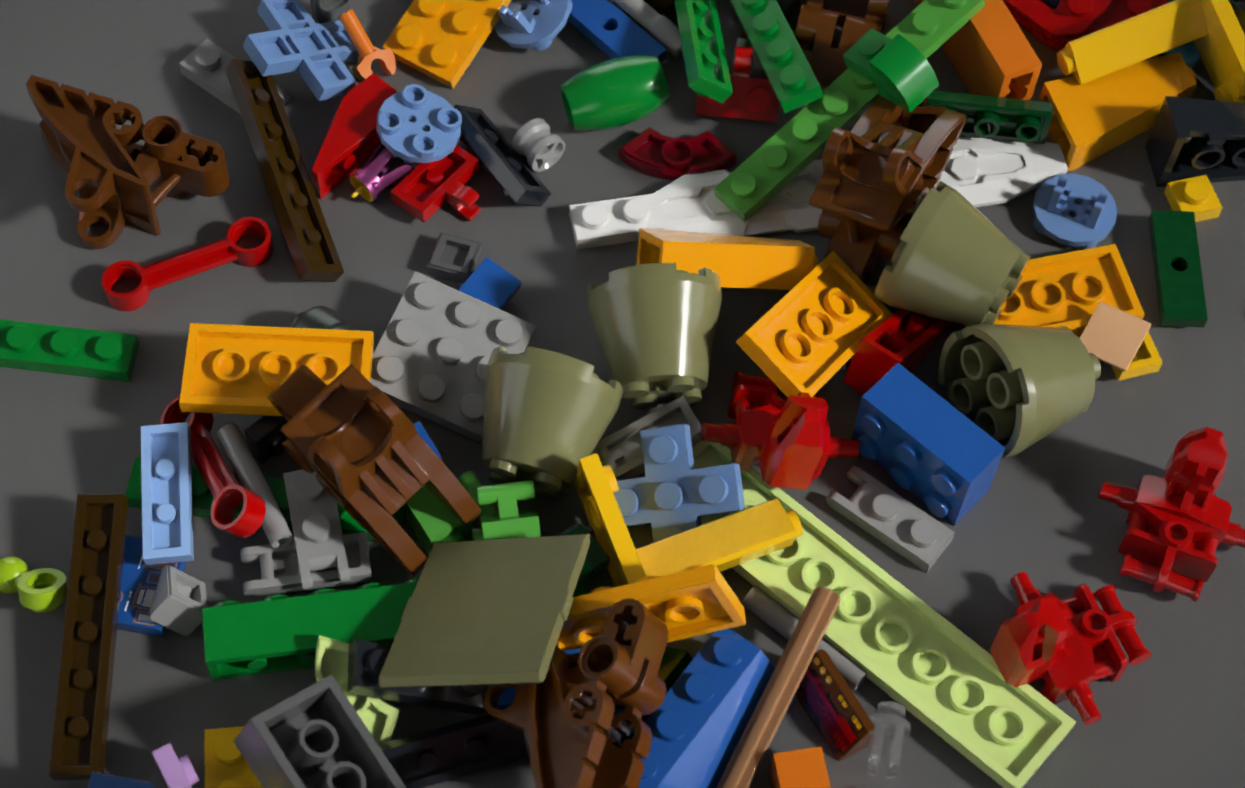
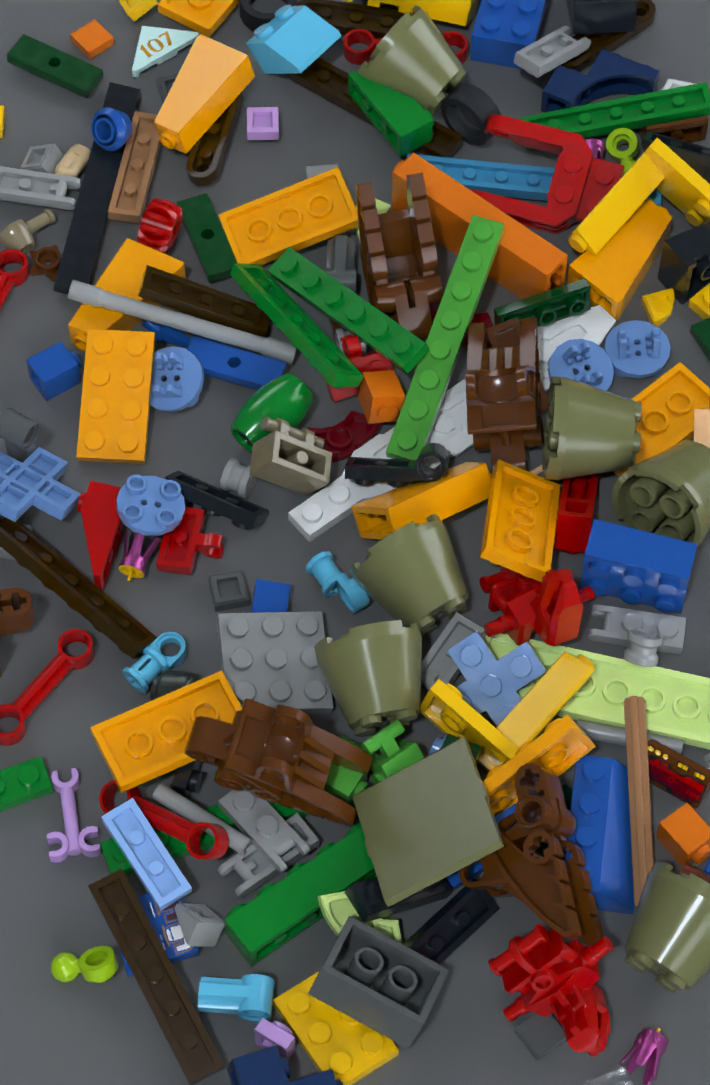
camera: 25 degrees left, 0 degrees up
(117, 441) = (73, 841): none -> lavender bar
(175, 710) = (247, 997): none -> medium azure piece
(324, 292) = (154, 662): none -> medium azure connector
(366, 50) = (70, 466): orange bar -> none
(572, 300) = (335, 582): none -> medium azure connector
(602, 144) = (290, 457): none -> dark tan brick
(714, 214) = (398, 471): none -> black plate
(746, 127) = (381, 396): none -> orange brick
(879, 540) = (643, 647): none -> light grey wheel
(895, 68) = (471, 305): green brick -> none
(999, 183) = (576, 355): none -> medium blue plate
(1128, 175) = (658, 305): none -> yellow tile

